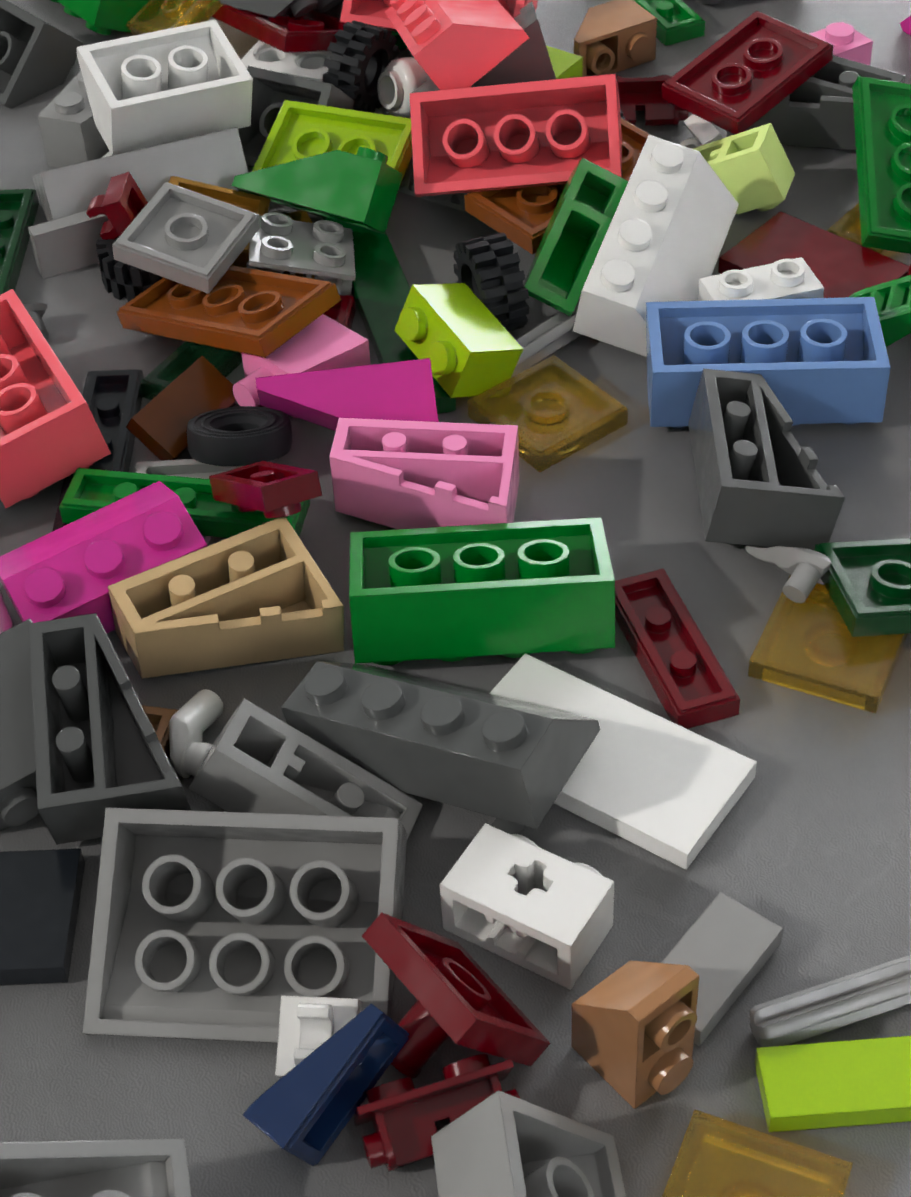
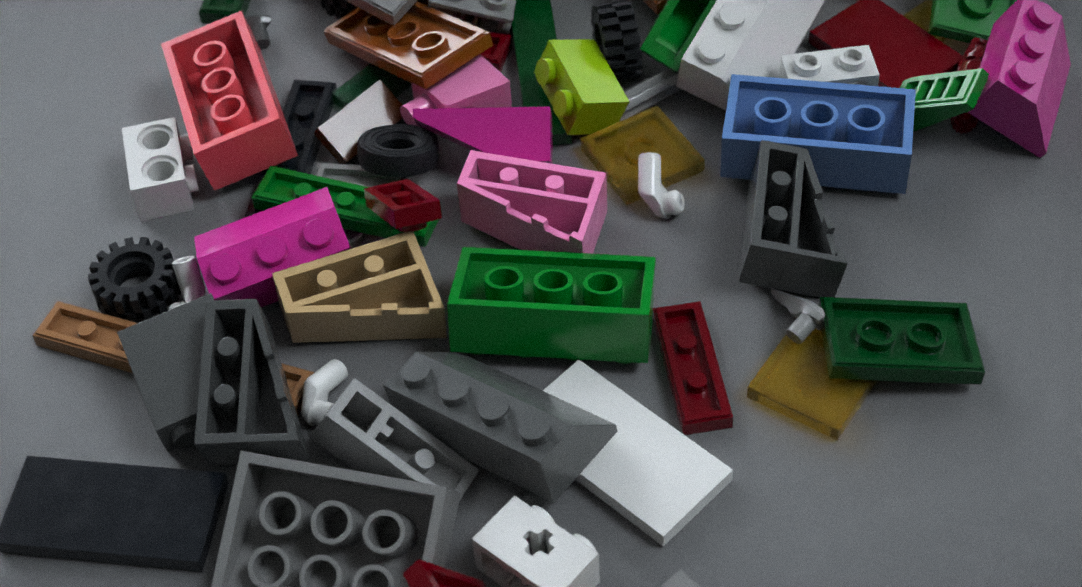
camera: 10 degrees right, 5 degrees up
(571, 447) = (653, 192): none -> white arm

